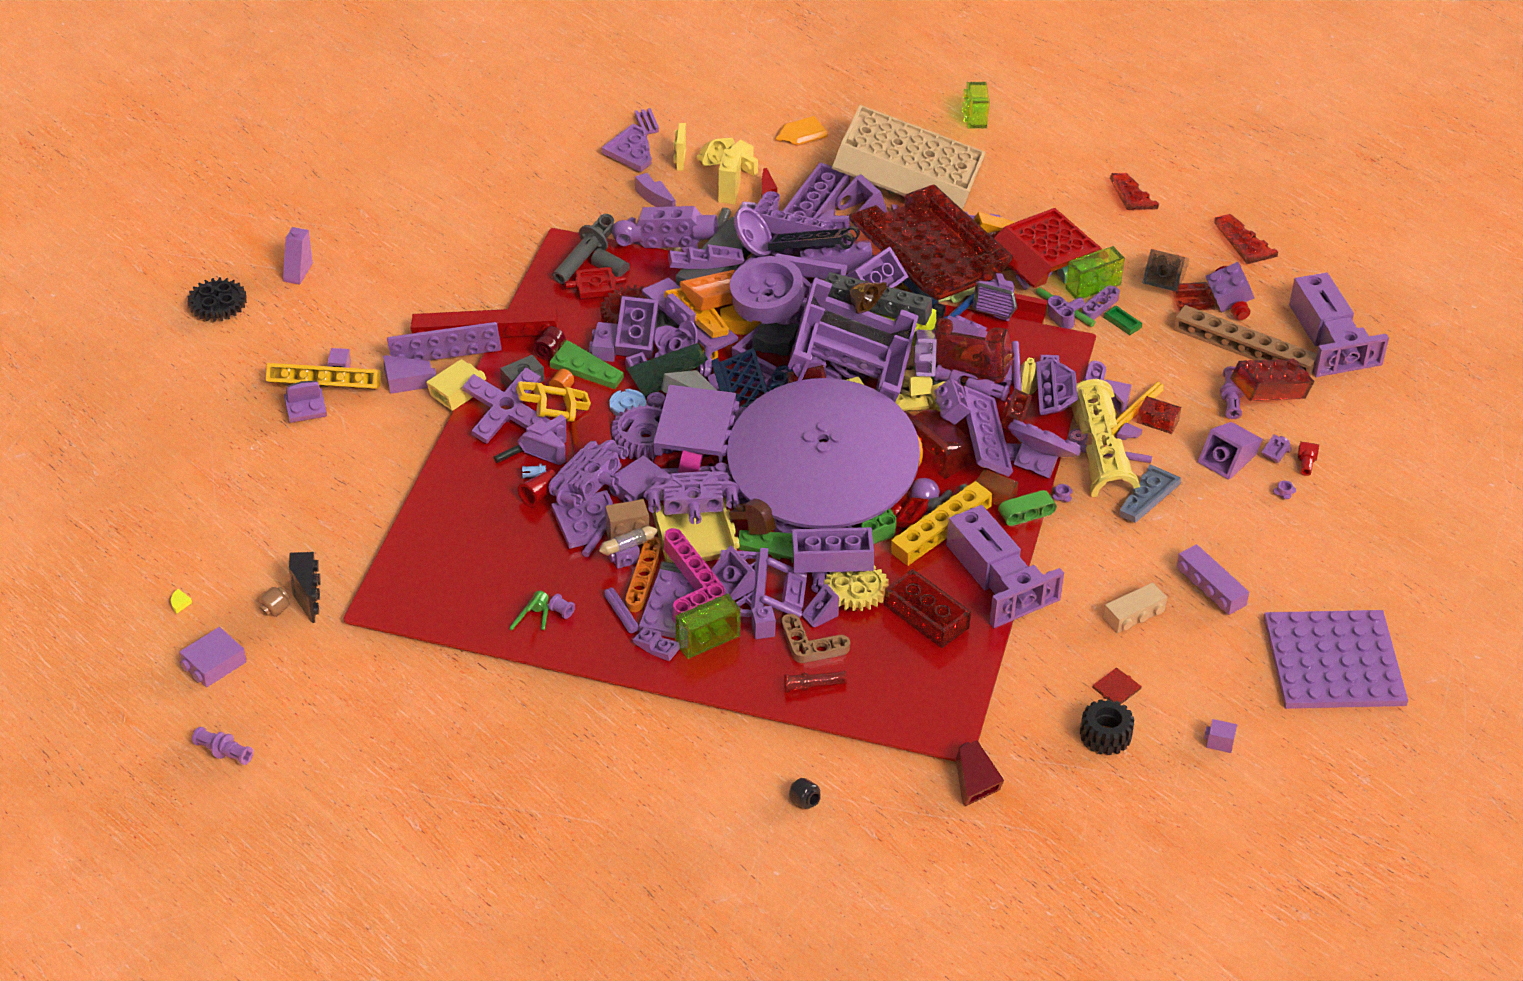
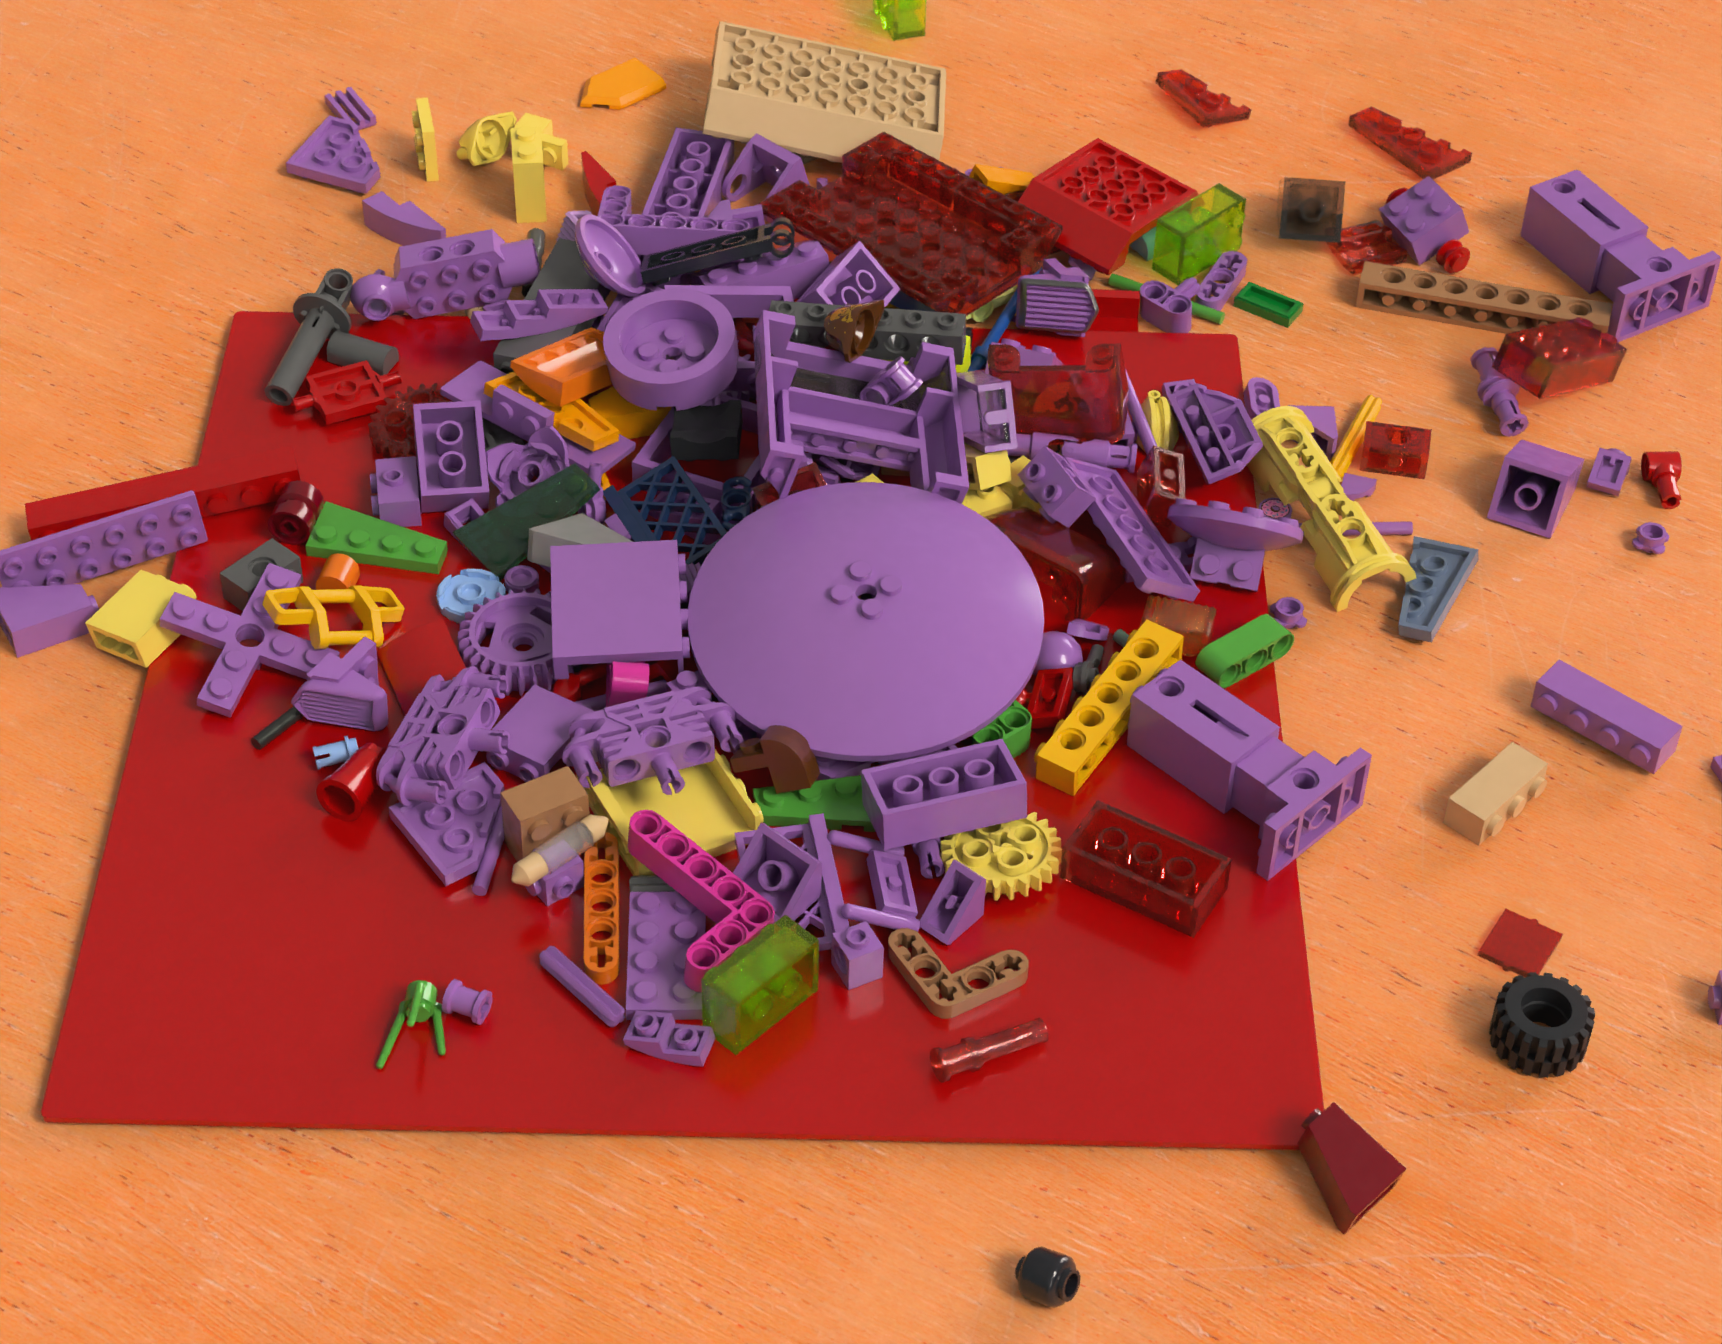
camera: 15 degrees left, 0 degrees up
(877, 330) = (891, 384): none -> medium lavender piece
(946, 481) = (1087, 629): none -> medium lavender tile

